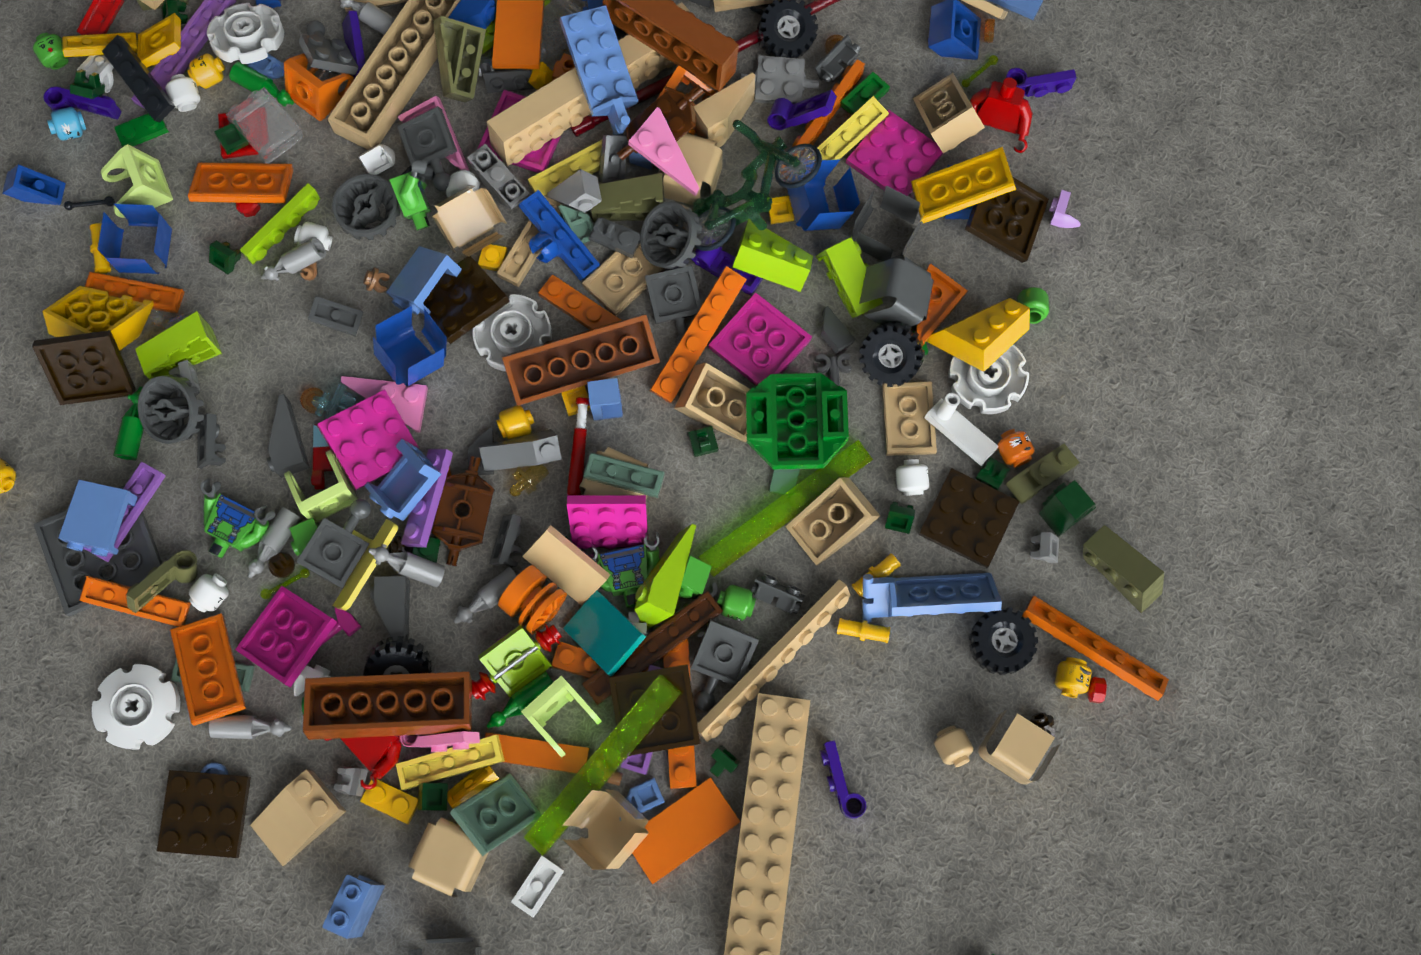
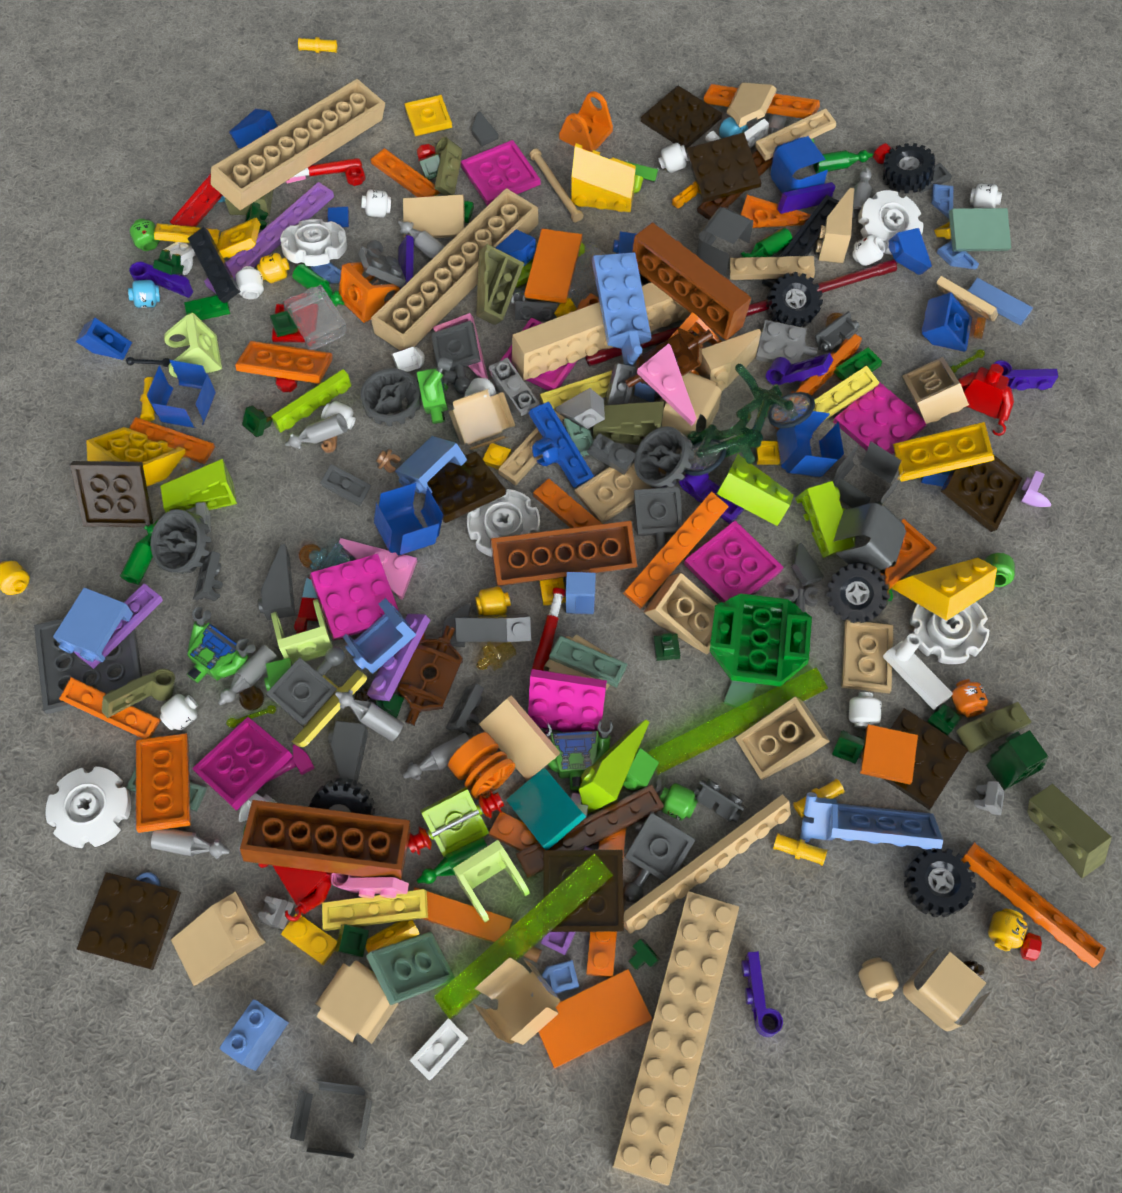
camera: 10 degrees right, 10 degrees down
(940, 520) = (889, 754): none -> orange tile

